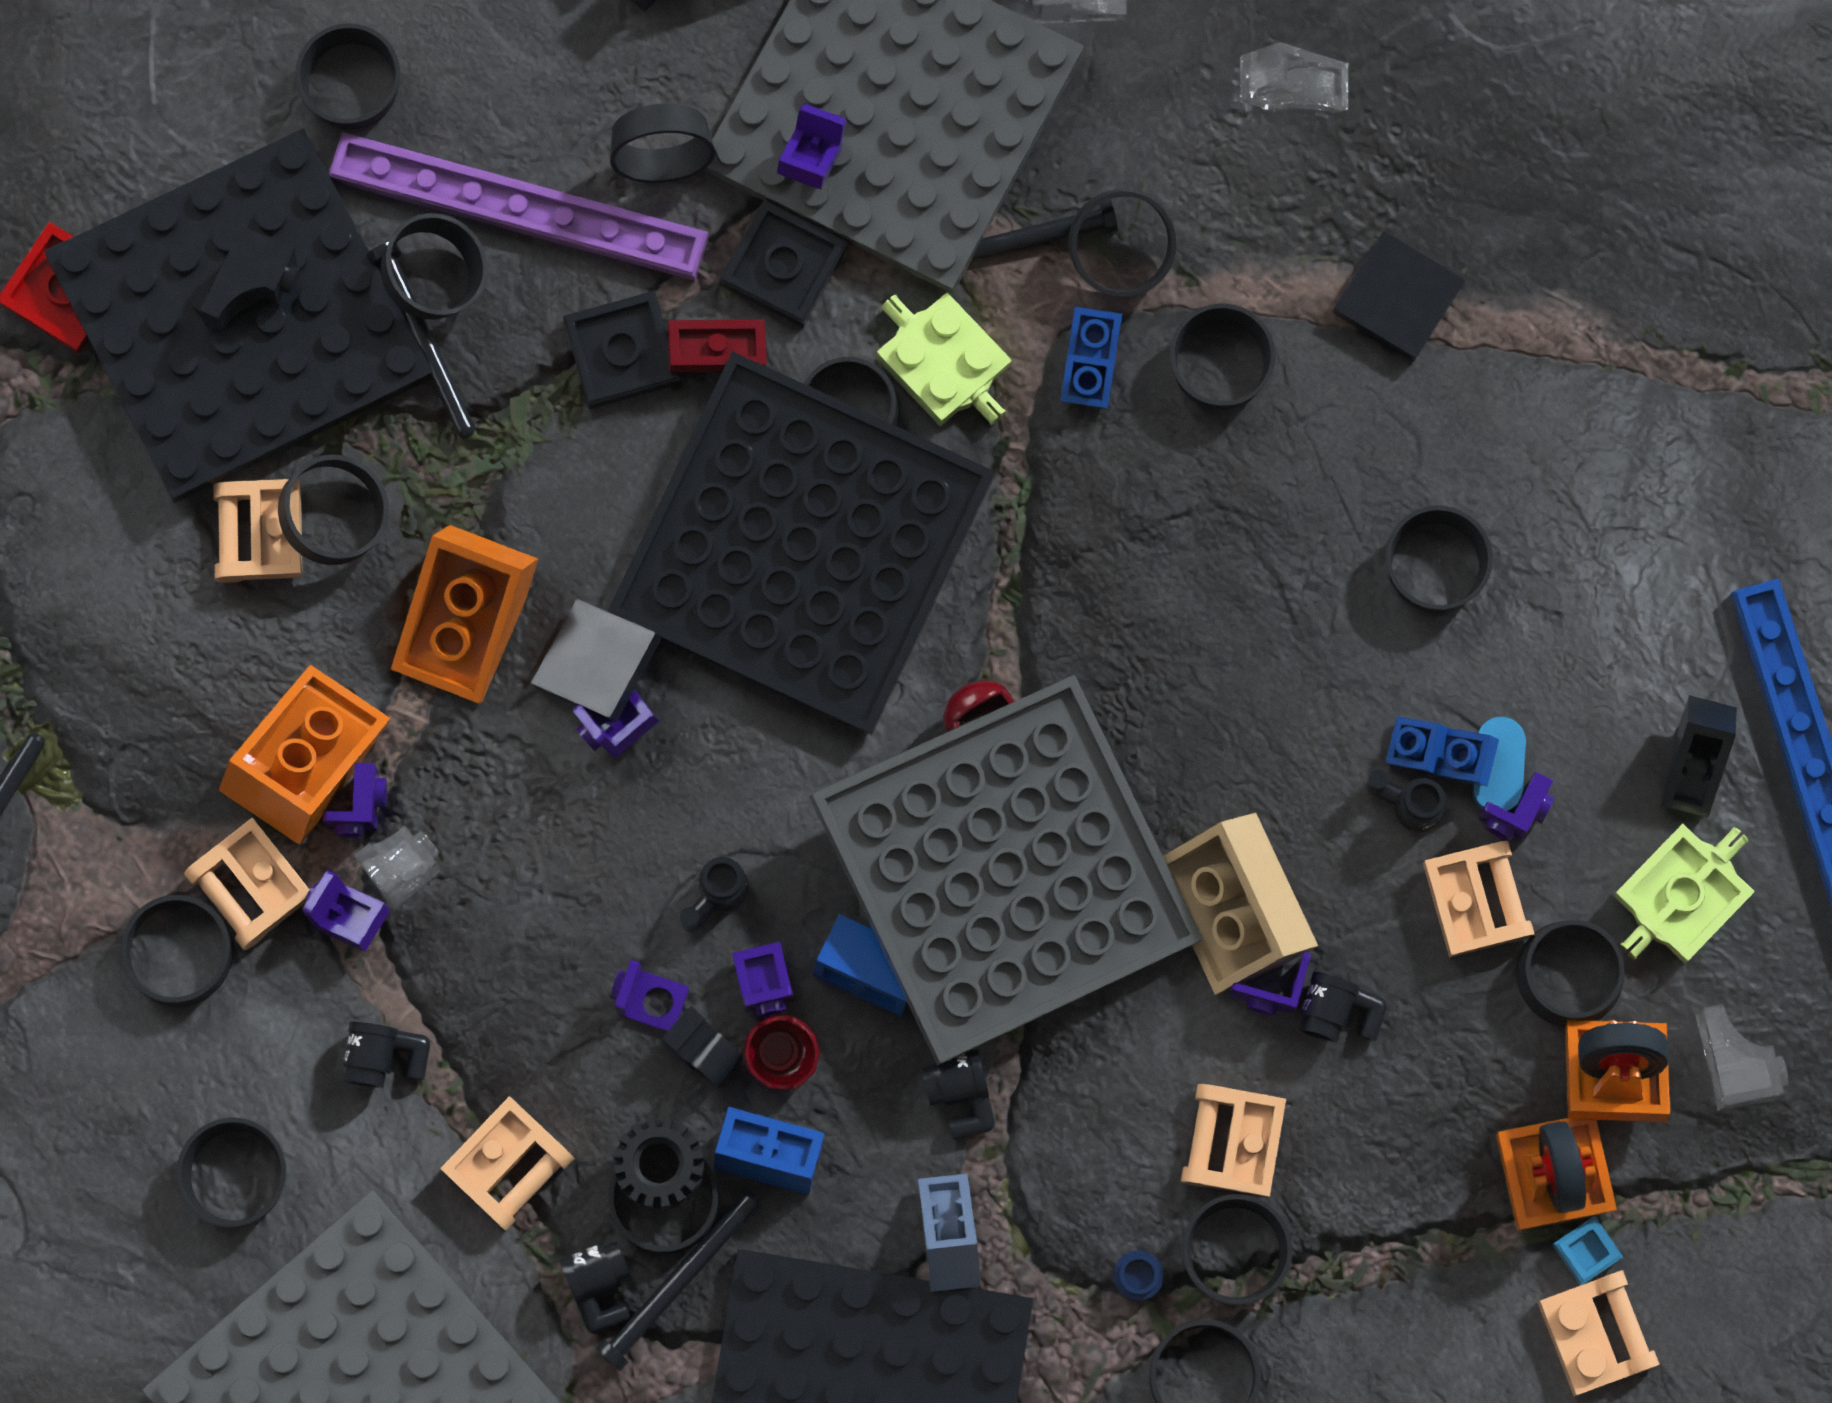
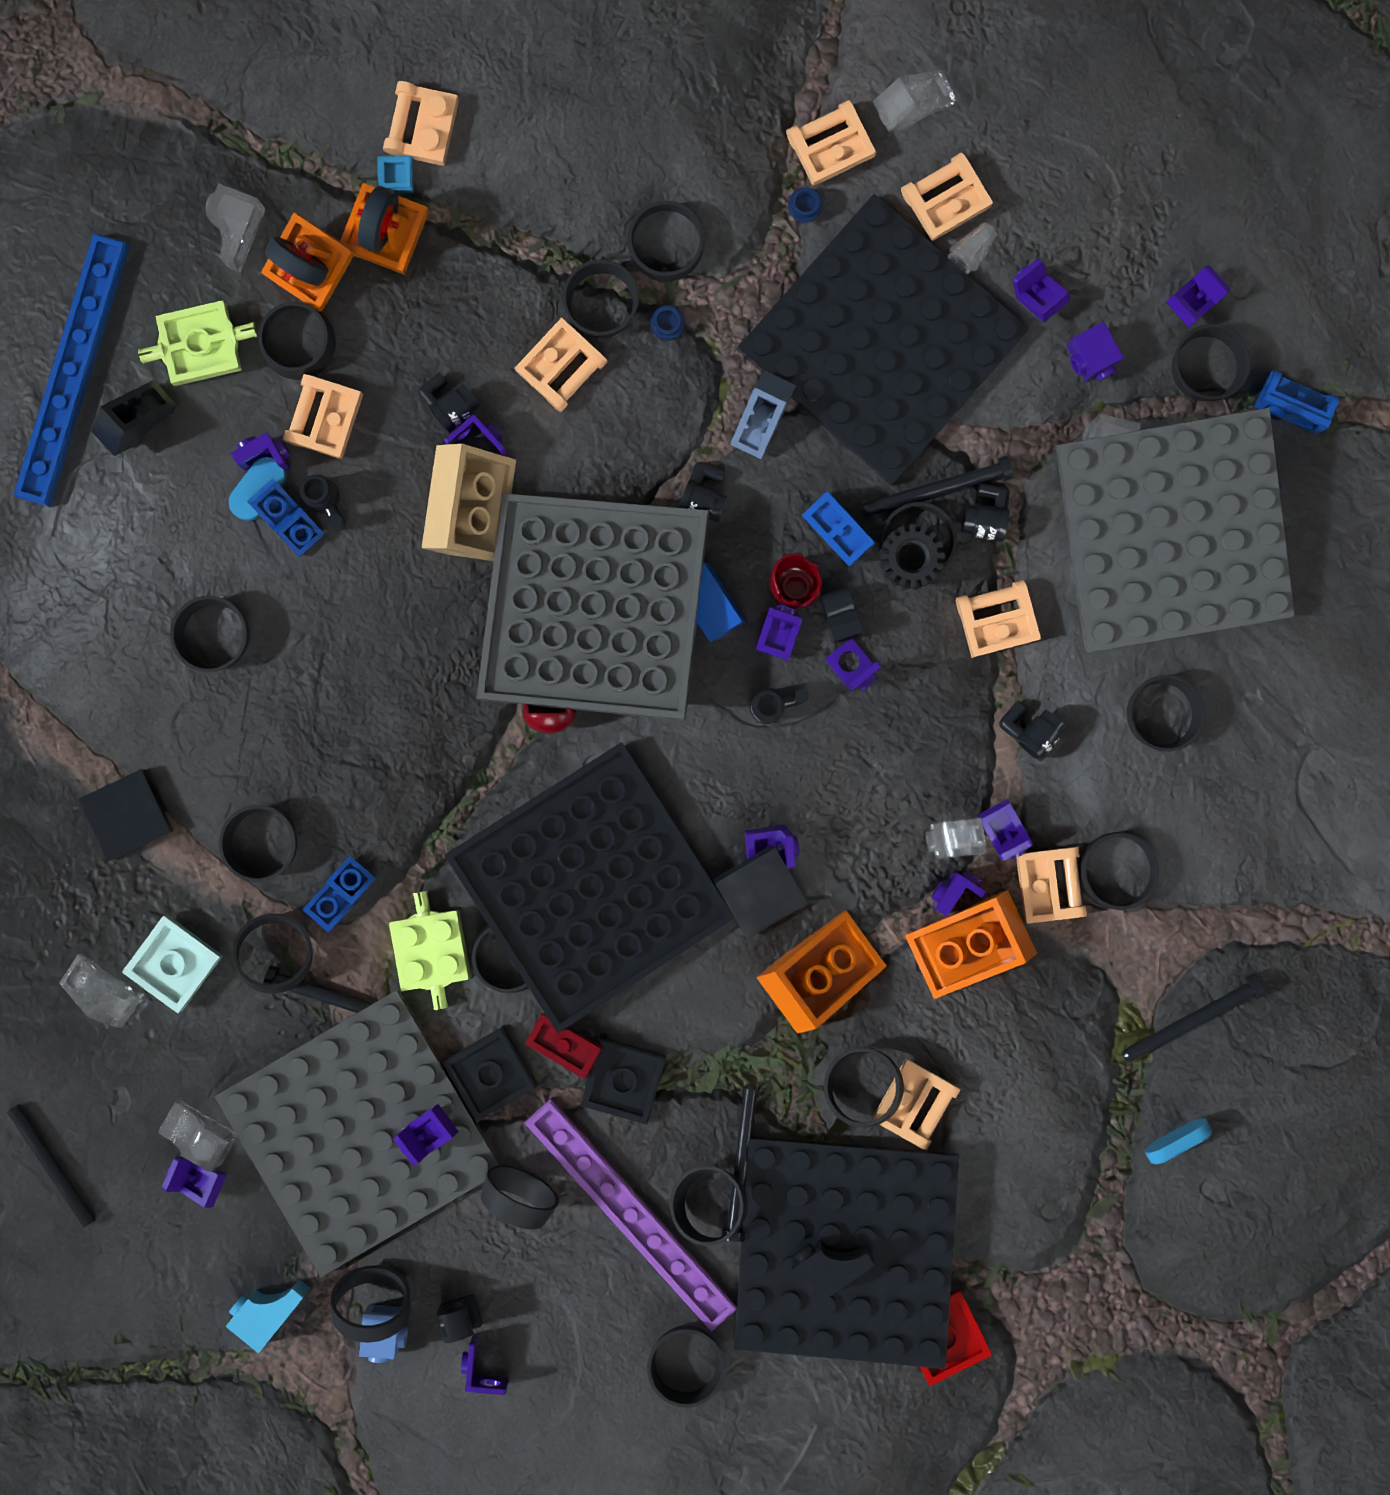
camera: 145 degrees left, 10 degrees up
(1231, 163) = (172, 963): none -> light aqua plate

